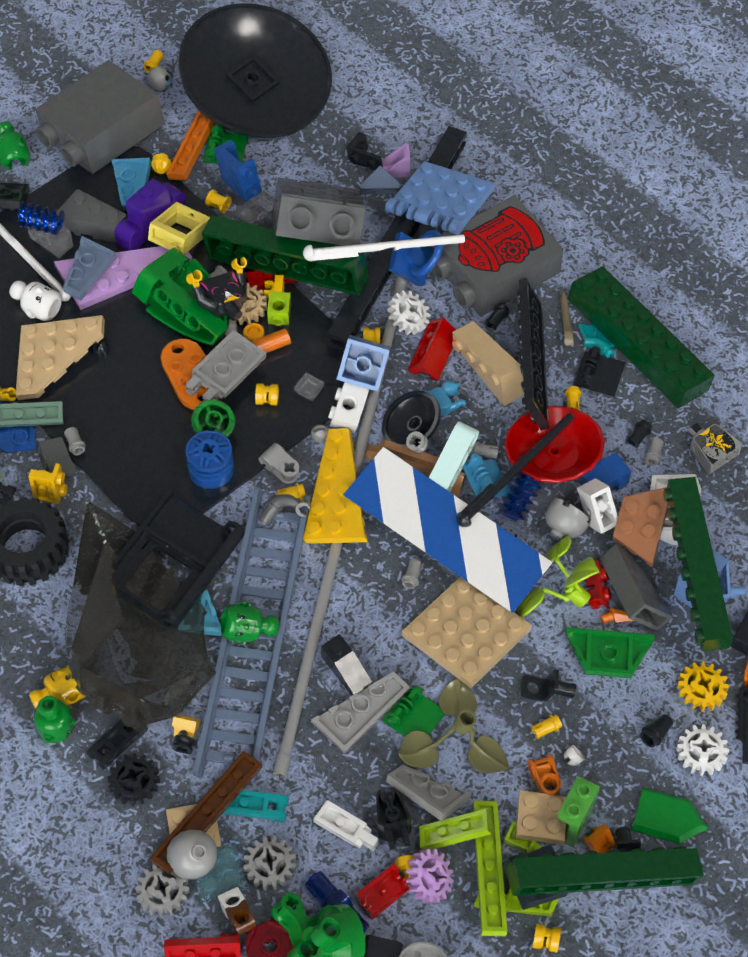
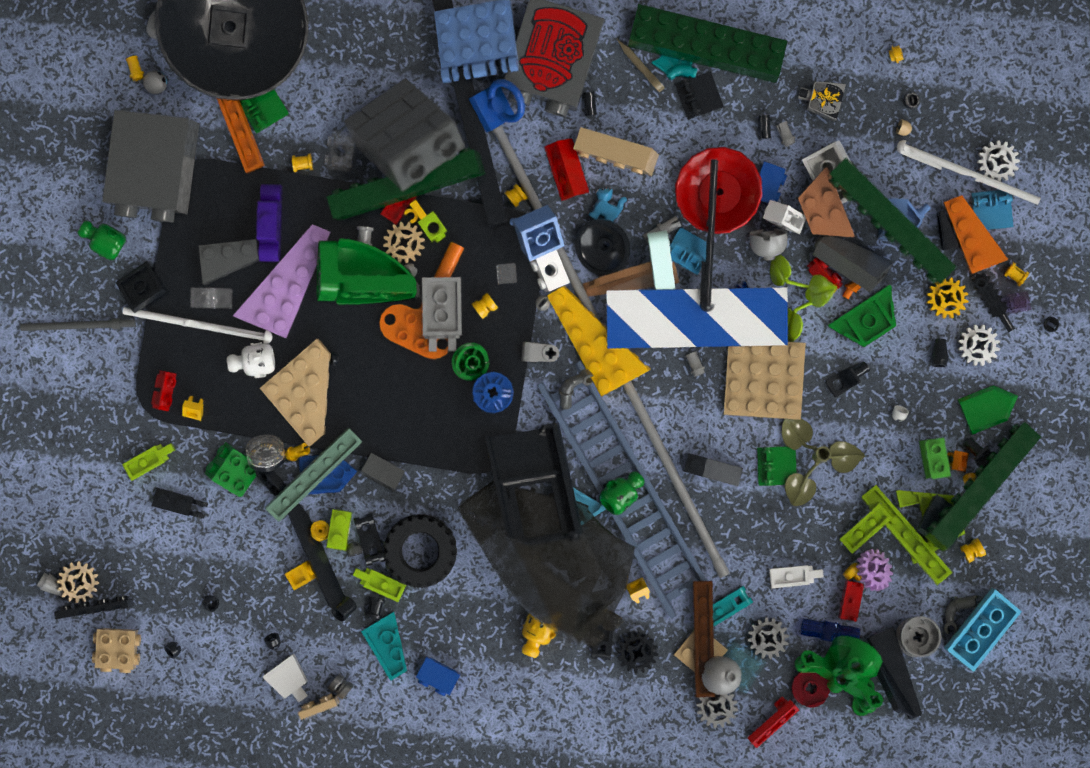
camera: 35 degrees left, 30 degrees up
(40, 219) = (204, 301): clear blue piece -> none
(48, 485) = (396, 500): yellow bracket -> none
(53, 720) = (554, 657): green piece -> none
(76, 445) = (383, 449): light grey pin -> none
(88, 267) = (267, 304): sand blue wing -> none
(131, 176) = (224, 197): dark azure wing -> none
(160, 163) = (233, 166): yellow plate -> none
(168, 237) = (303, 235): light yellow window -> none
(183, 744) = (648, 604): black bush -> none
(221, 293) = (392, 256): black torso -> none
(238, 176) = (286, 126): blue panel -> none
(238, 912) = (776, 686): reddish brown leg -> none
(253, 331) = (430, 260): light orange tile -> none
(296, 491) = (563, 366): yellow pin -> none
(352, 250) = (468, 159): white bar -> none
(353, 718) = (742, 494): light grey wing -> none
(358, 153) = (366, 28): black bracket -> none
(380, 183) = (410, 50): sand blue slope -> none
(393, 819) = (823, 551): black hinge -> none
(398, 162) = (406, 23): lavender slope -> none
(408, 312) = (526, 154): white gear -> none
(411, 440) = (627, 271): light grey bush -> none
(430, 795) = (830, 513): light grey wing -> none
(520, 497) = (727, 251): clear blue piece -> none
(533, 355) = (648, 125): black plate -> none
(538, 818) = (912, 475): tan plate -> none
(545, 774) = (892, 442): orange piece -> none
(546, 726) = (867, 405): yellow pin -> none
(573, 397) = (698, 134): yellow pin -> none

